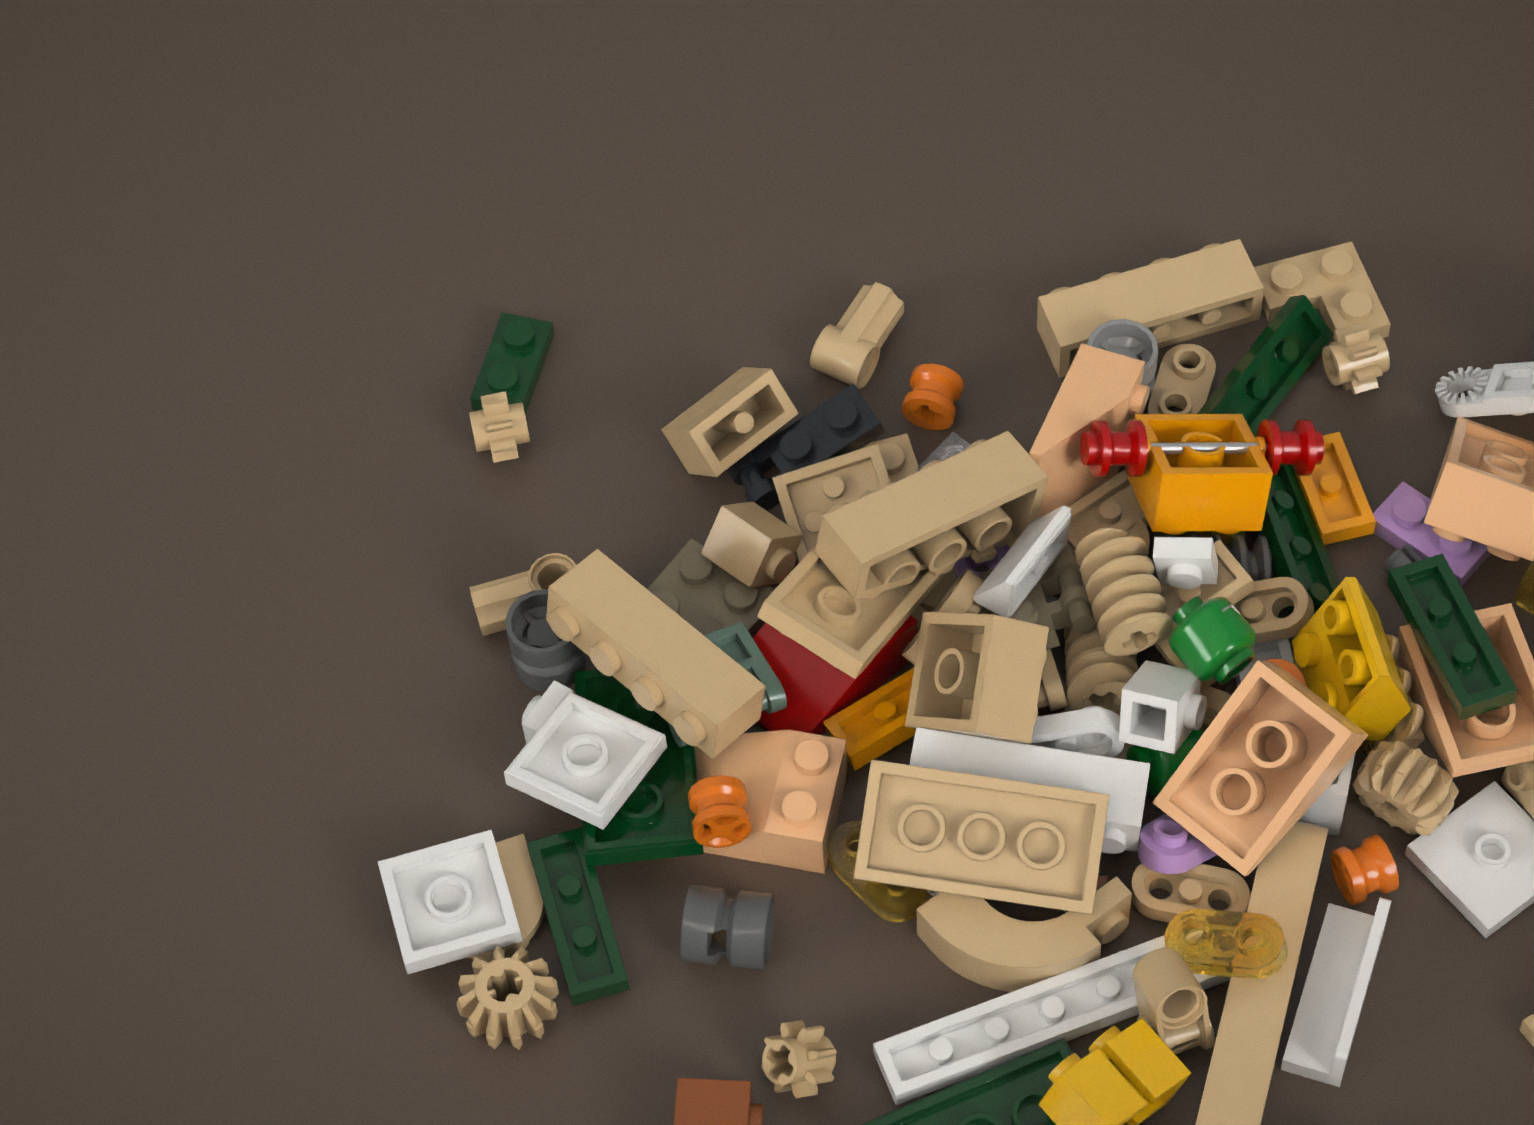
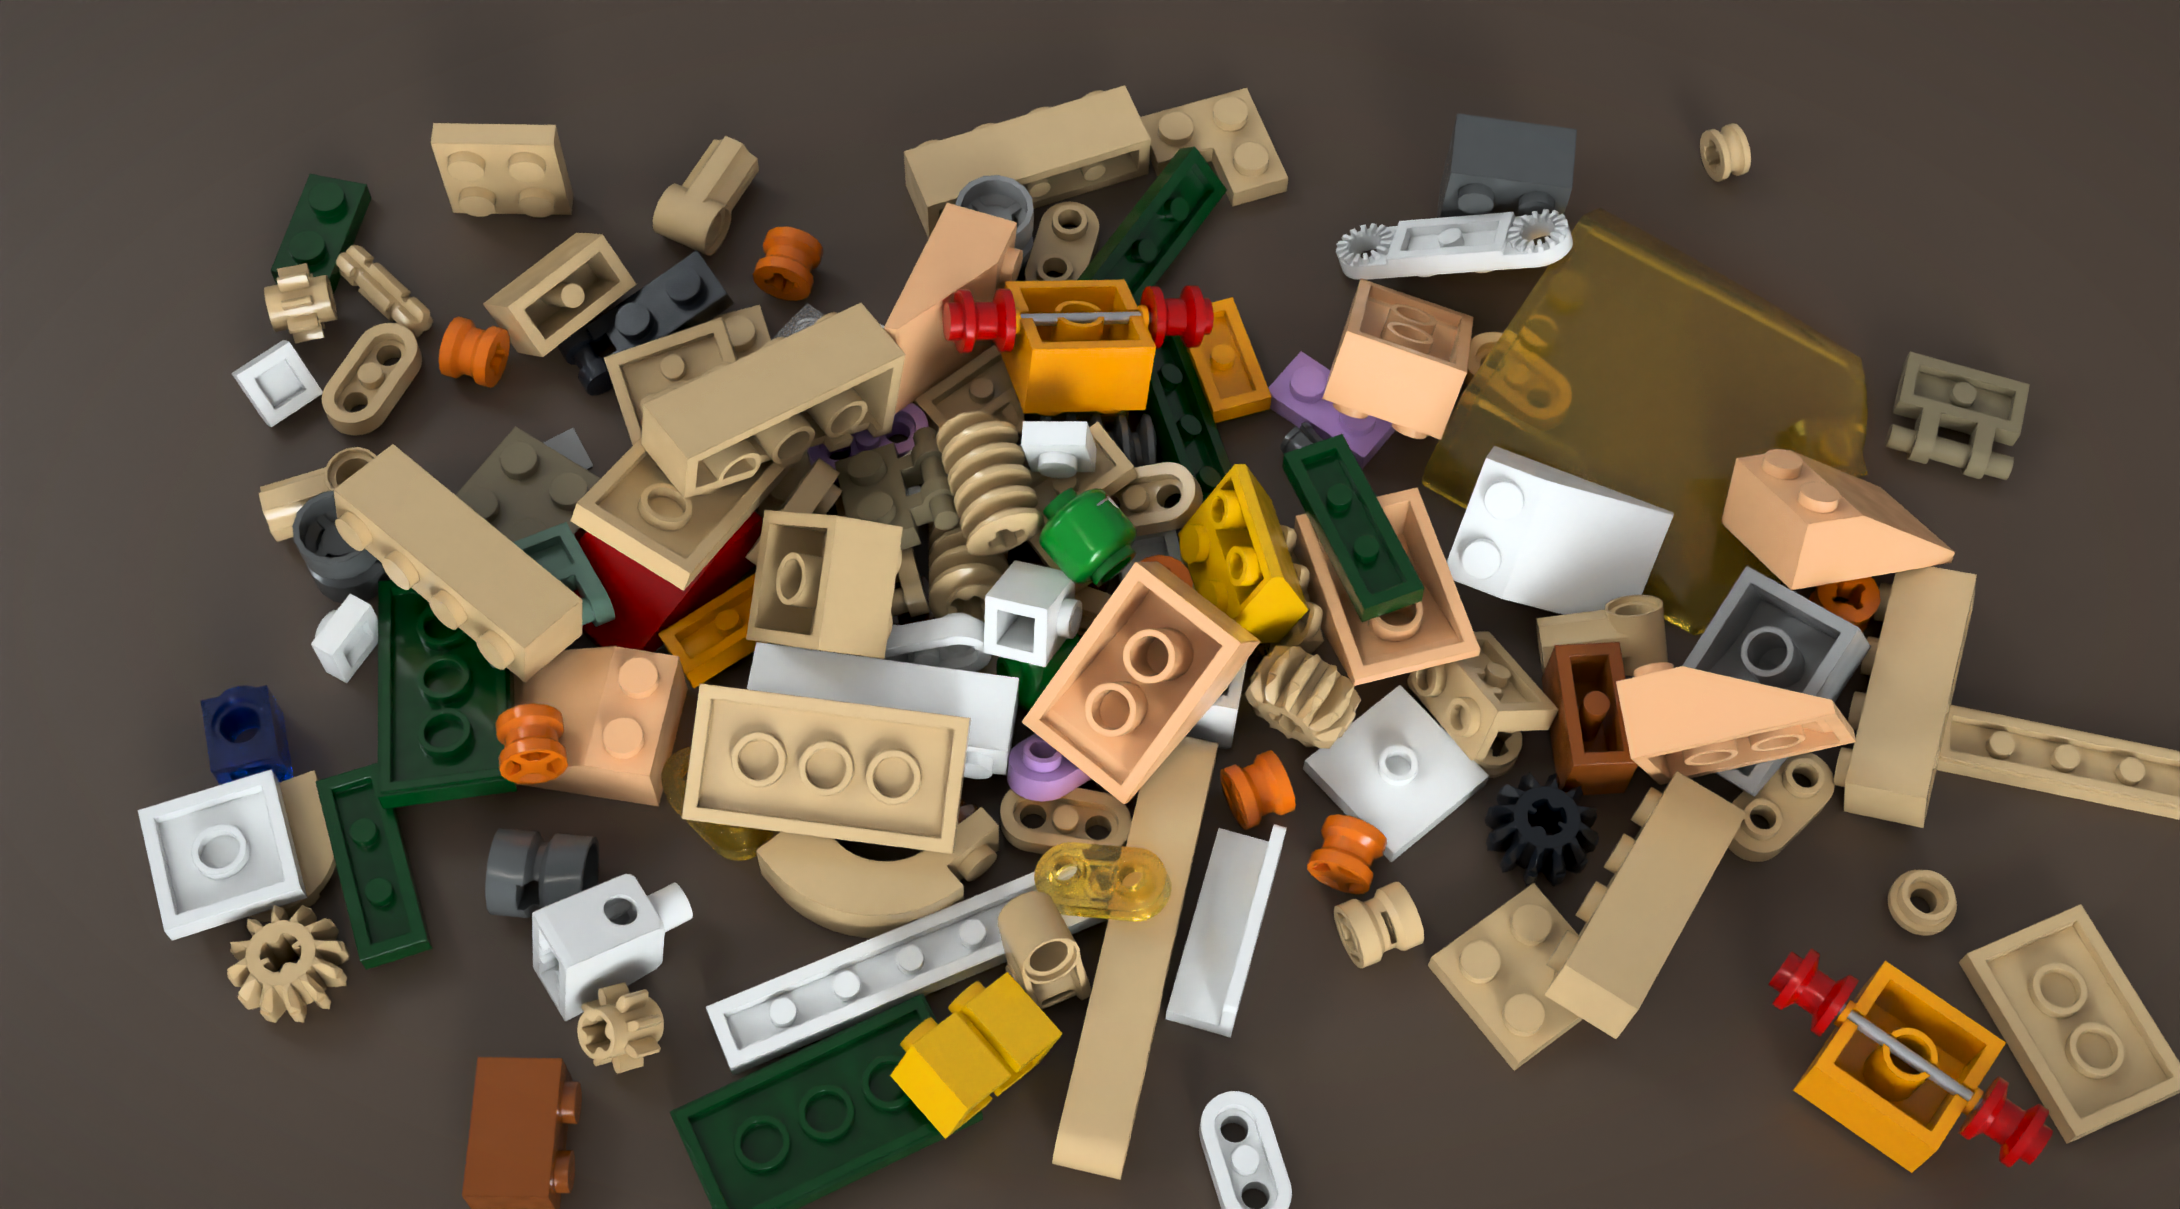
camera: 10 degrees left, 5 degrees up
(456, 781) = (238, 711): none -> clear blue brick
(480, 497) = (277, 383): none -> white plate
(559, 498) = (368, 382): none -> tan plate
(570, 418) = (383, 290): none -> tan axle
(585, 760) = (381, 686): white plate -> none
(653, 472) = (474, 352): none -> orange wheel
(677, 310) = (503, 169): none -> tan plate
(752, 544) = (579, 432): tan brick -> none
(781, 982) = (603, 938): none -> white torso
(1025, 563) = (881, 452): white slope -> none
(1356, 359) = (1250, 216): tan gear -> none
(1445, 928) = (1347, 854): none -> orange wheel
(1474, 990) = (1379, 924): none -> tan wheel

